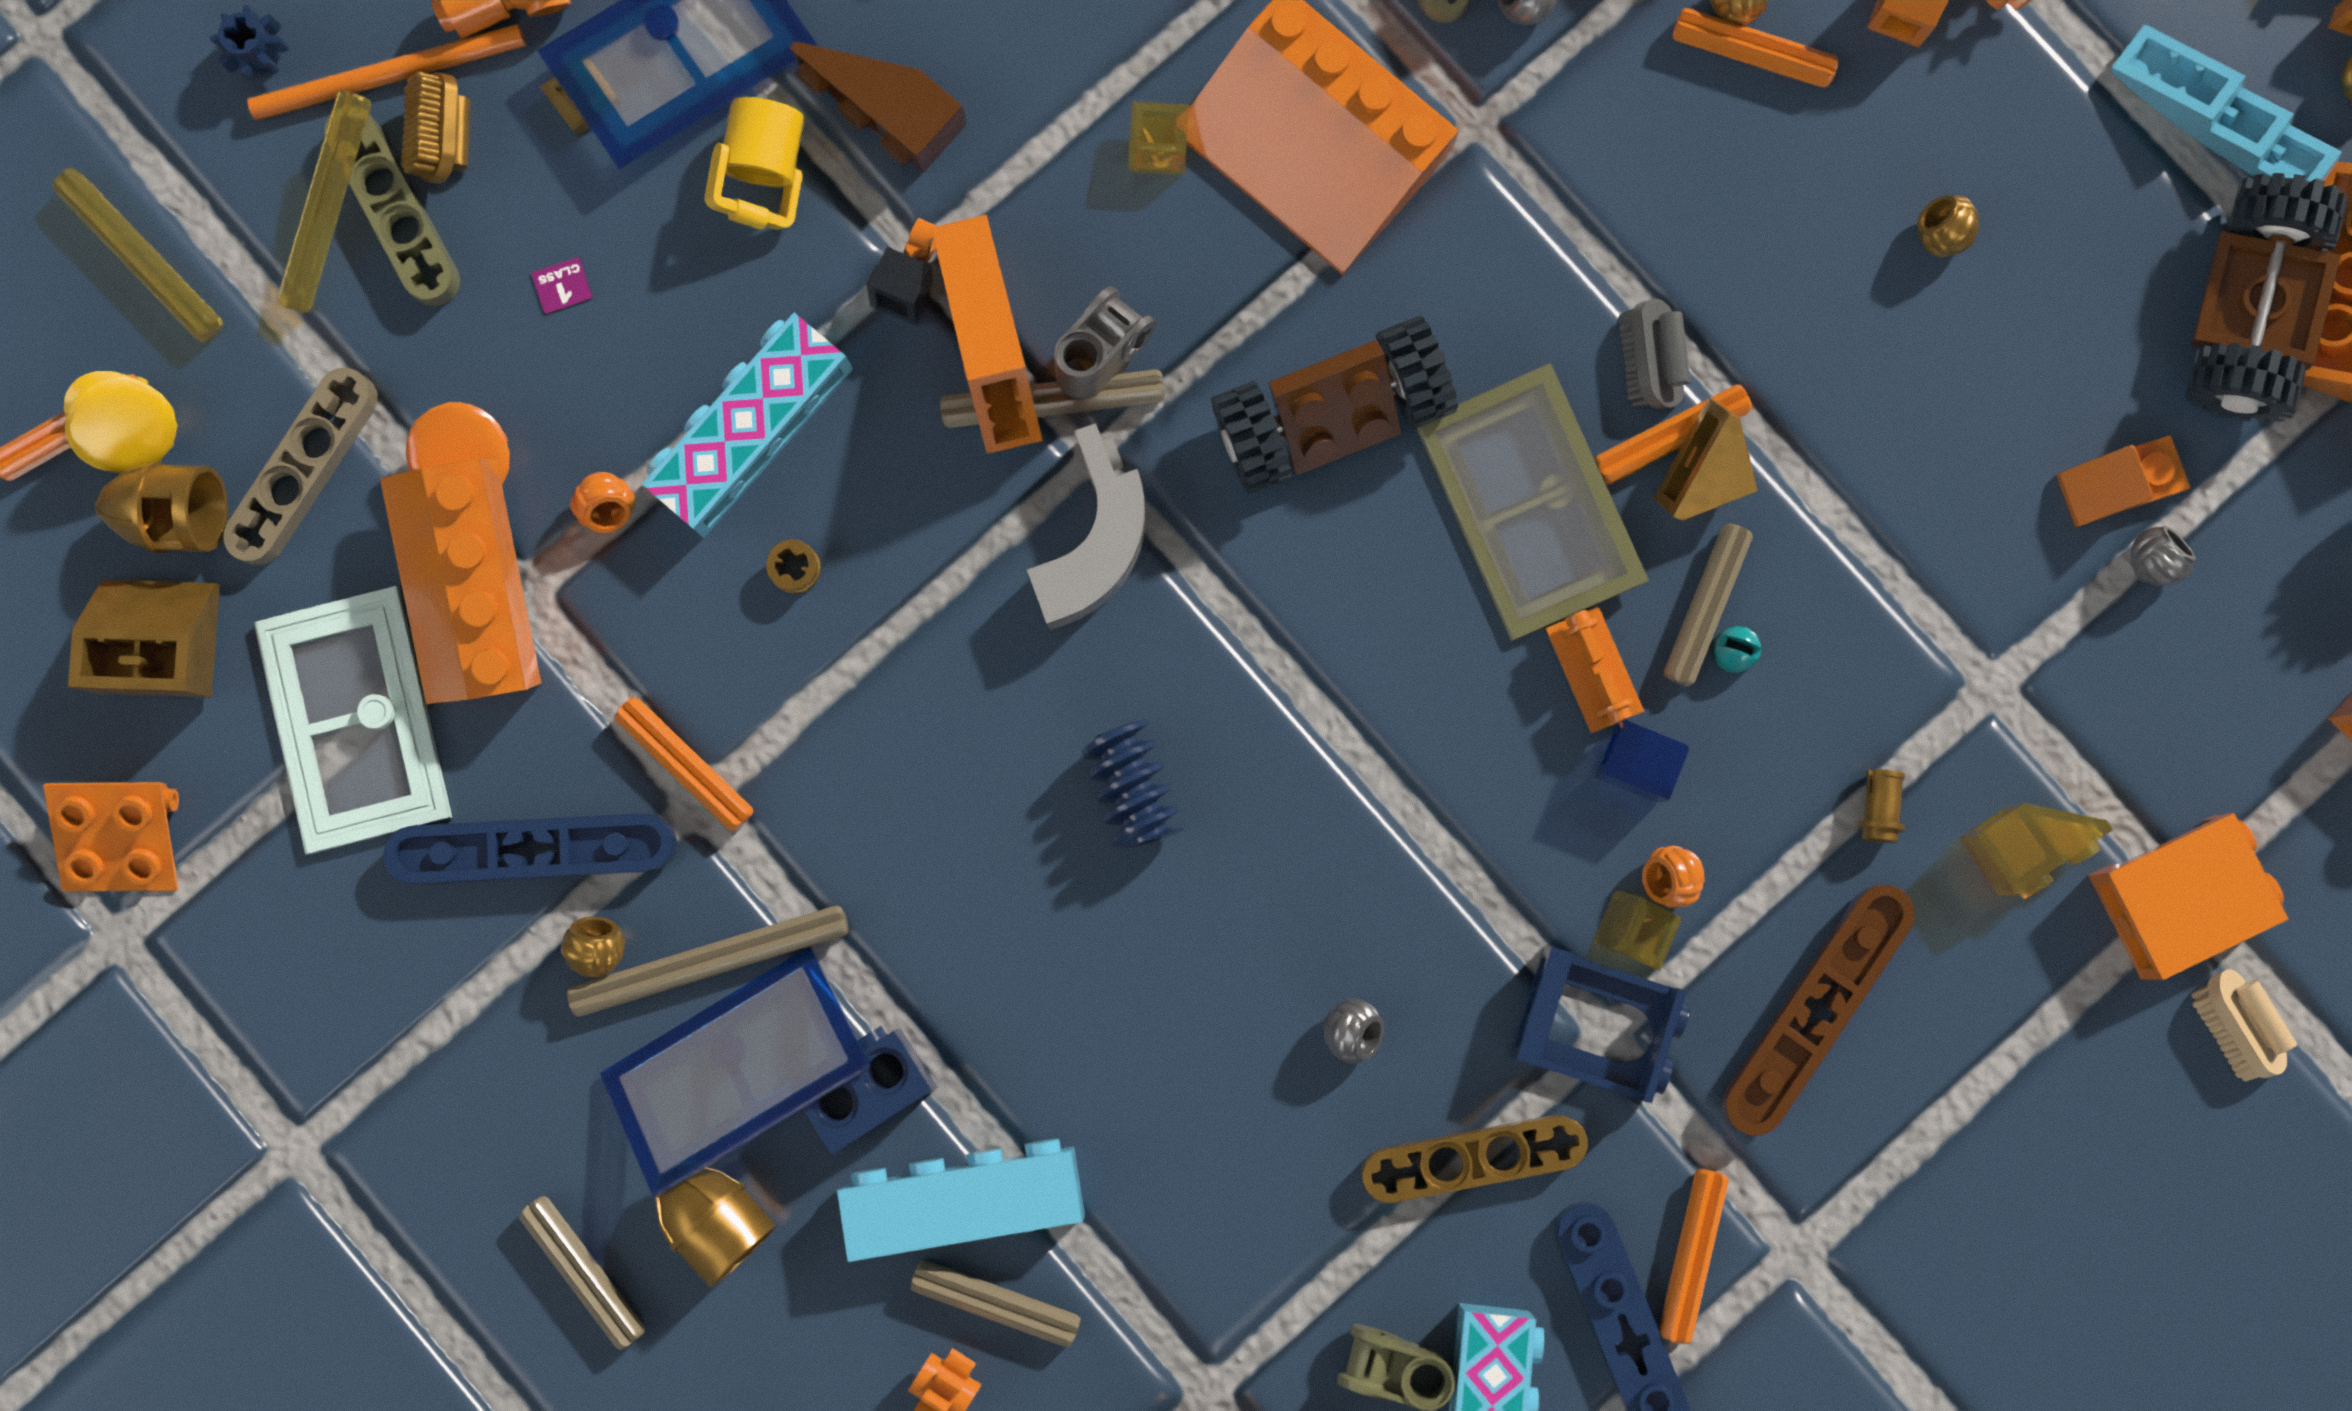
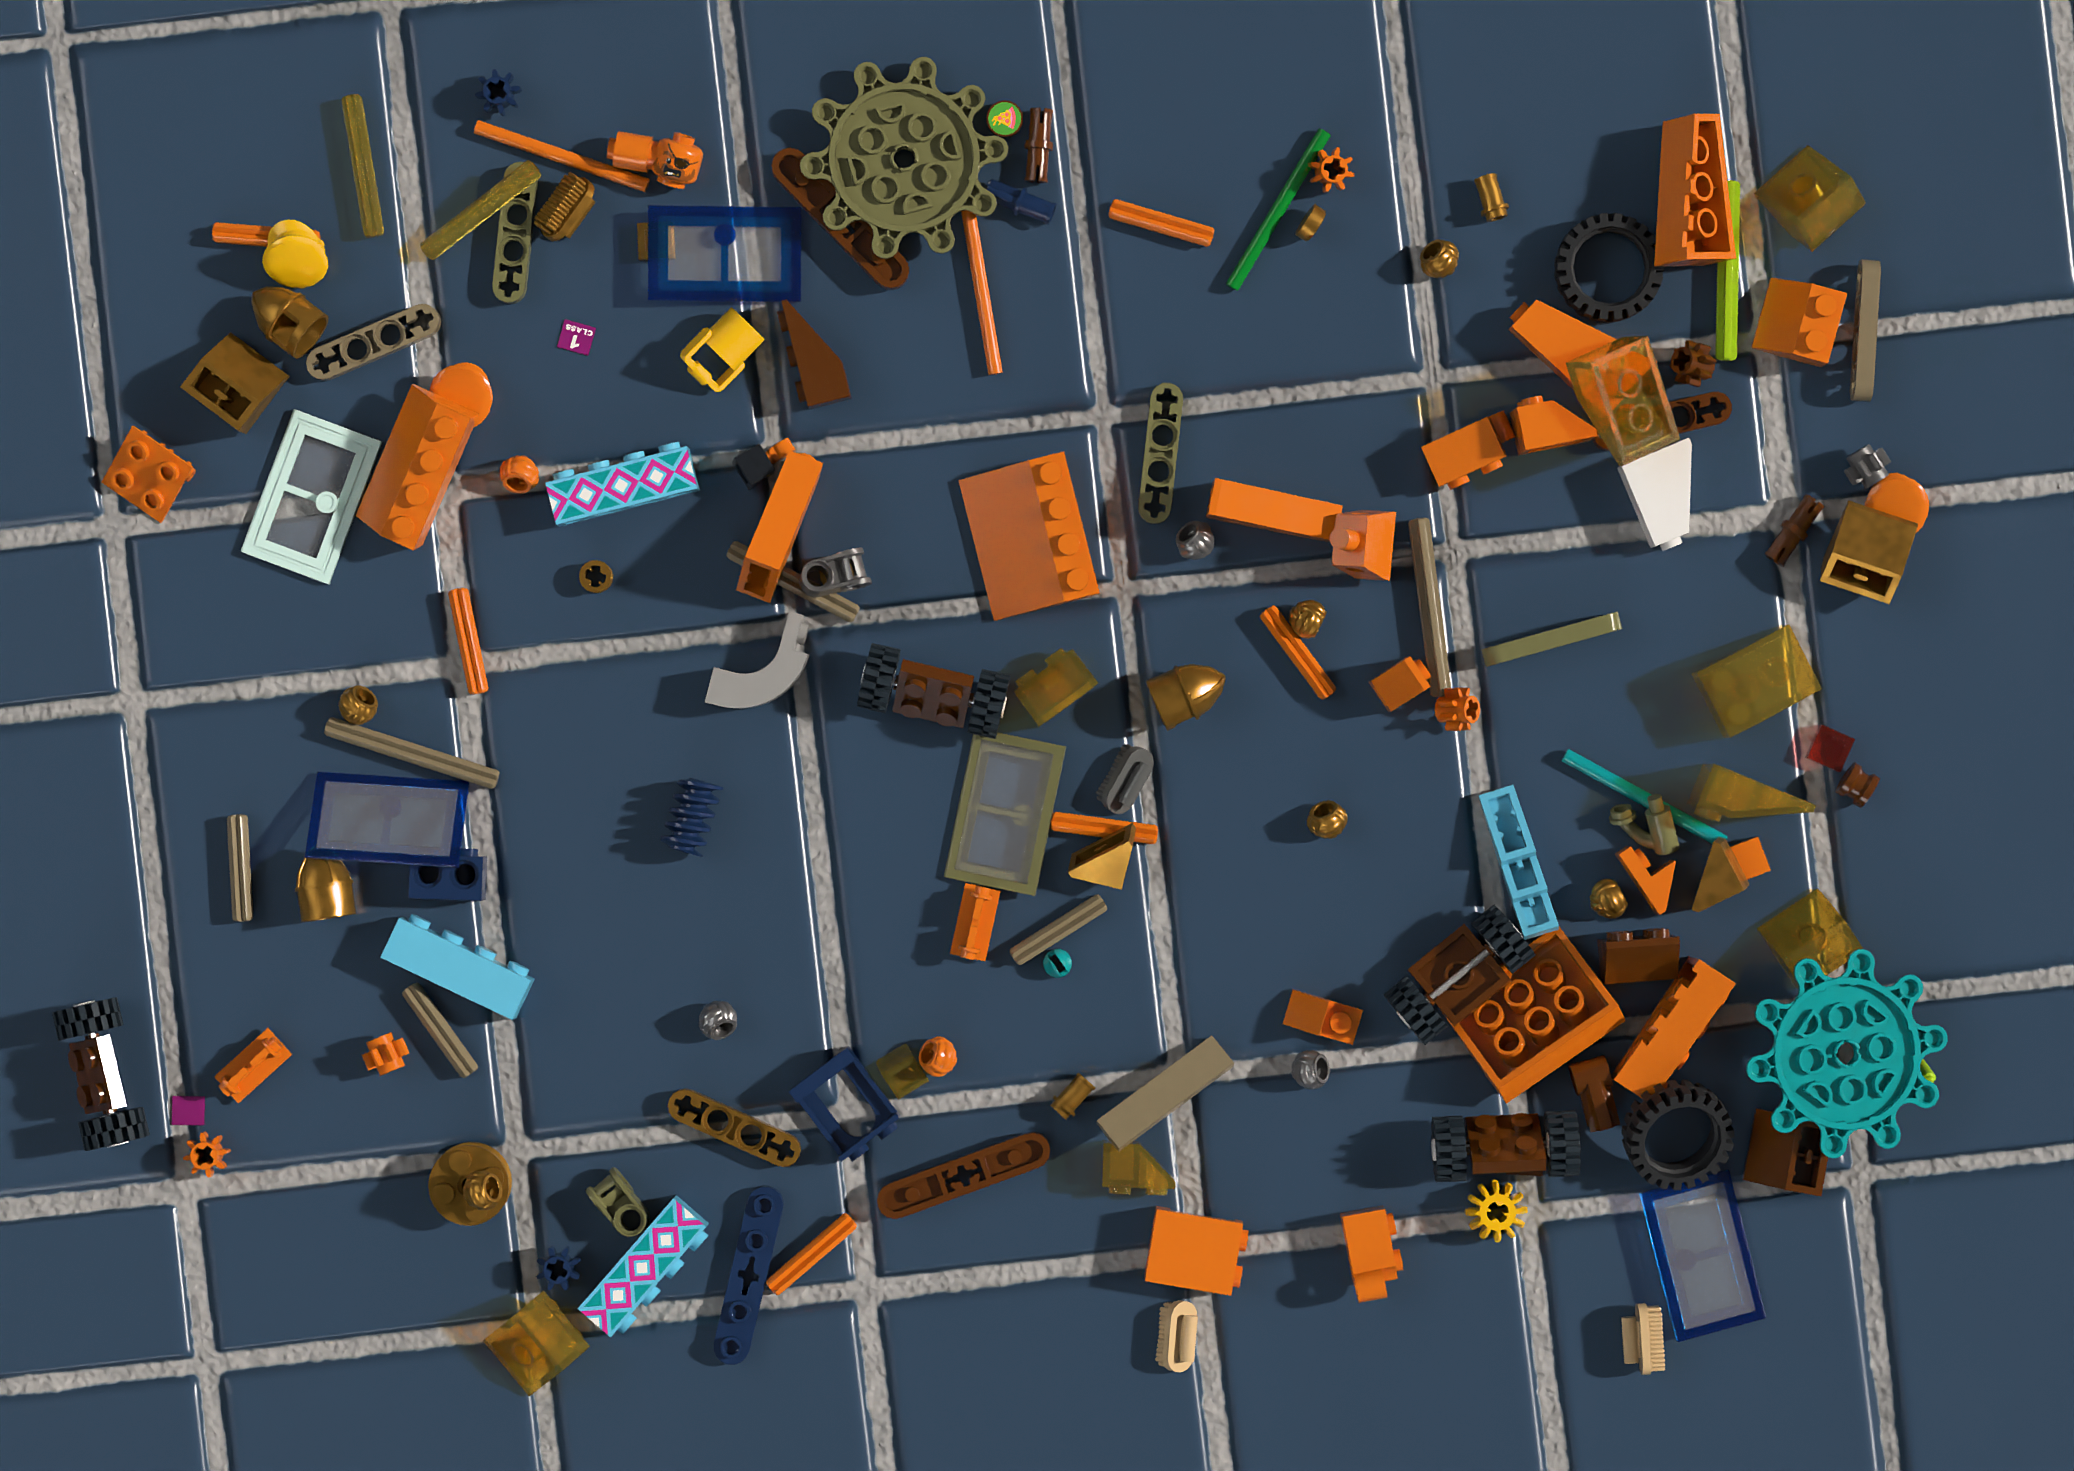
camera: 30 degrees right, 5 degrees up
(475, 849) = (328, 613): dark blue piece -> none
(1158, 137) = (946, 480): clear yellow slope -> none
(1487, 292) = (1055, 686): none -> clear yellow slope
(1642, 761) = (963, 987): clear blue panel -> none
(1653, 190) = (1185, 692): none -> pearl gold helmet
(2004, 717) = (1165, 1093): none -> dark tan tile

